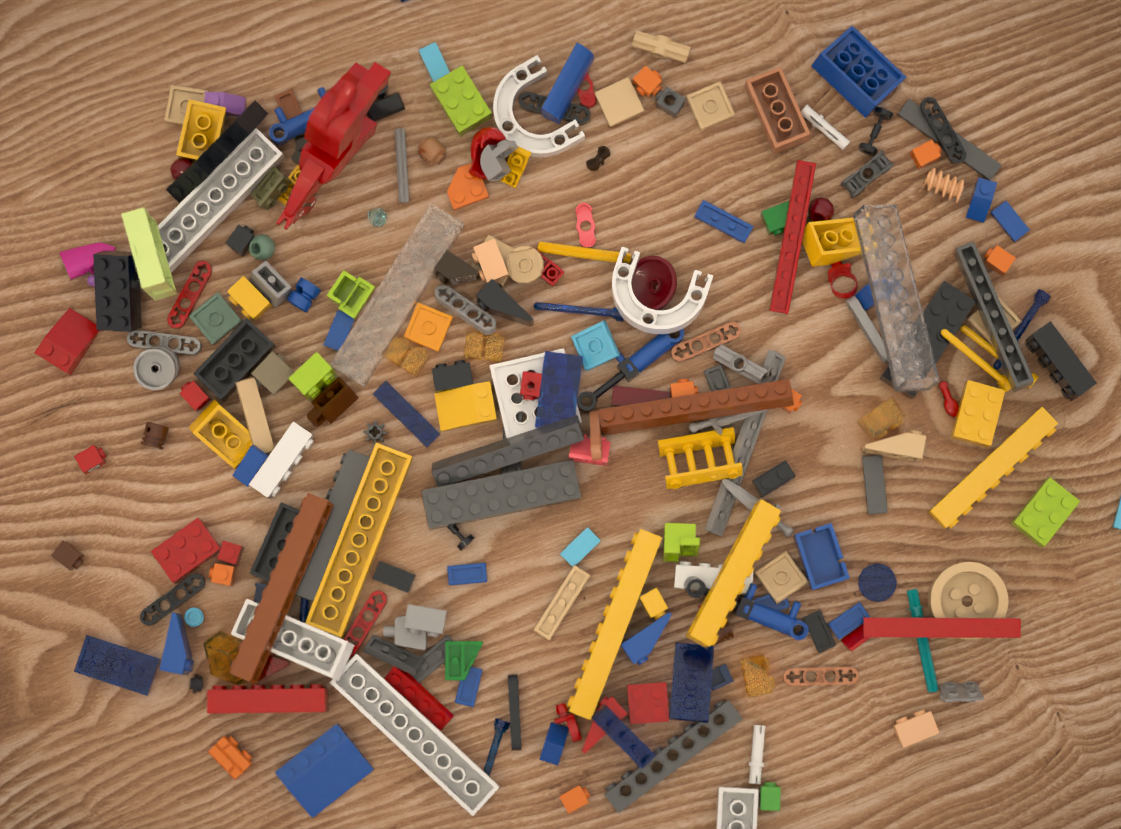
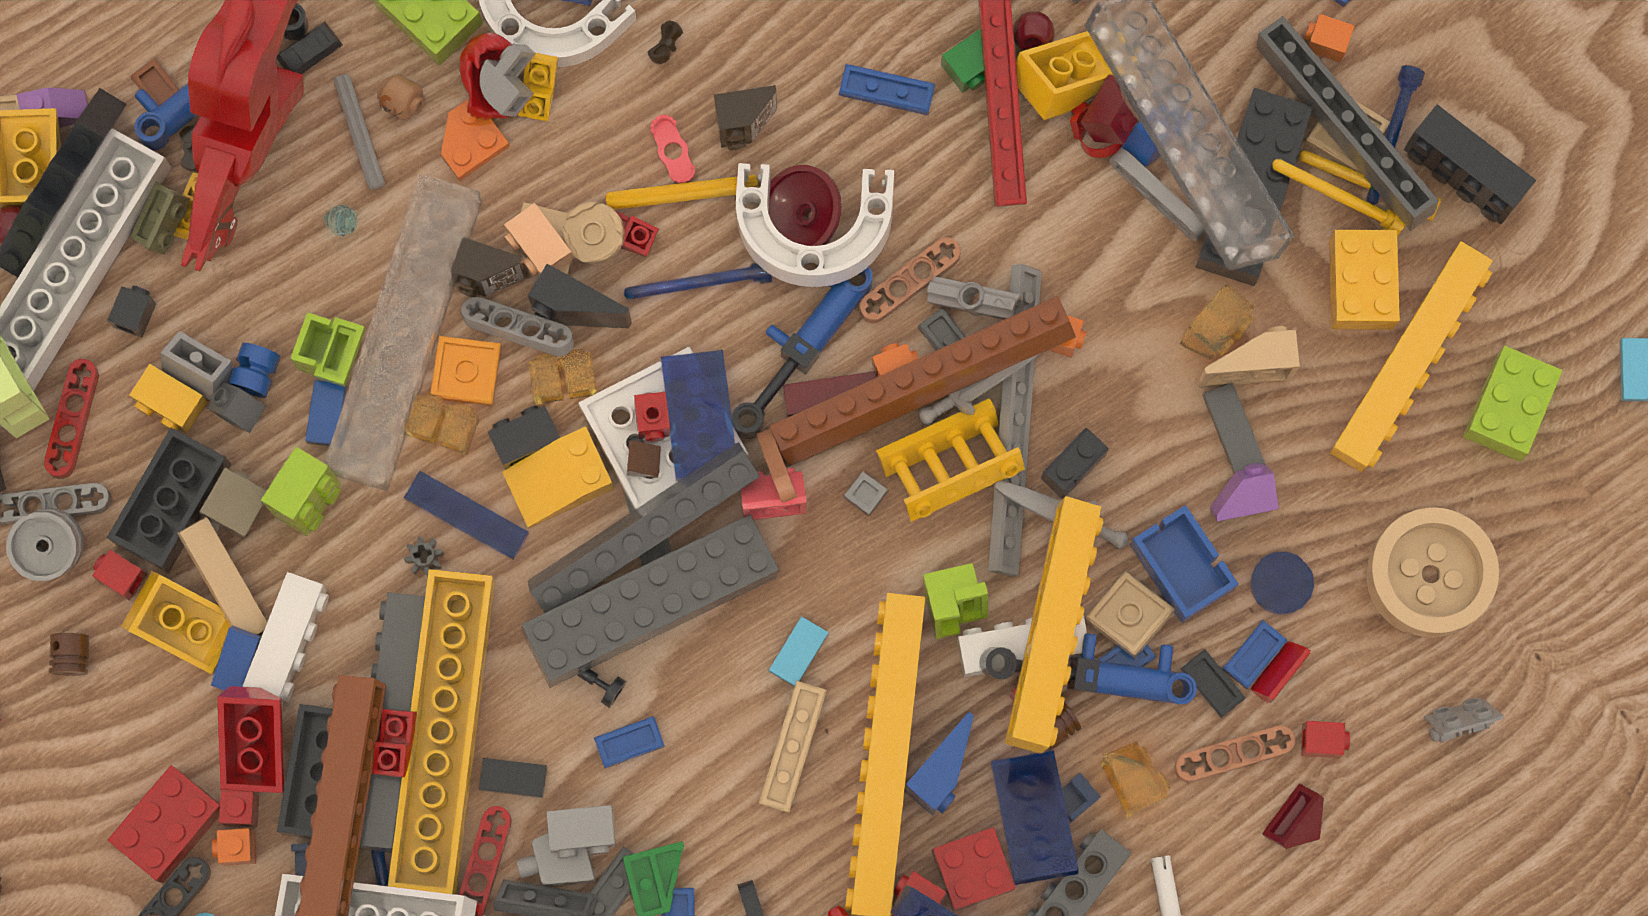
camera: 20 degrees left, 5 degrees down
(215, 318) = (121, 445): sand green tile -> none
(247, 515) = (250, 740): none -> red slope
(262, 247) = (168, 313): sand green piece -> none
(287, 314) = (236, 407): none -> dark grey brick
(330, 540) = (395, 742): none -> red slope
(331, 403) = (342, 526): reddish brown brick -> none
(518, 410) = (643, 459): none -> reddish brown slope
(595, 345) = (738, 329): medium azure tile -> none
(632, 217) = (743, 115): none -> dark brown slope
(644, 464) = (865, 493): none -> flat silver plate
(653, 604) = (939, 708): yellow brick -> none
(846, 725) = (1297, 820): none -> dark red slope
(852, 274) = (1110, 114): none -> dark red slope
(870, 524) = (1247, 493): none -> medium lavender slope
(875, 682) = (1324, 739): none -> red brick
(916, 728) = (1408, 795): light nougat brick -> none
(923, 643) = (1379, 654): teal axle -> none
(942, 627) = (1405, 623): red tile -> none
(950, 404) = (1316, 277): red piece -> none

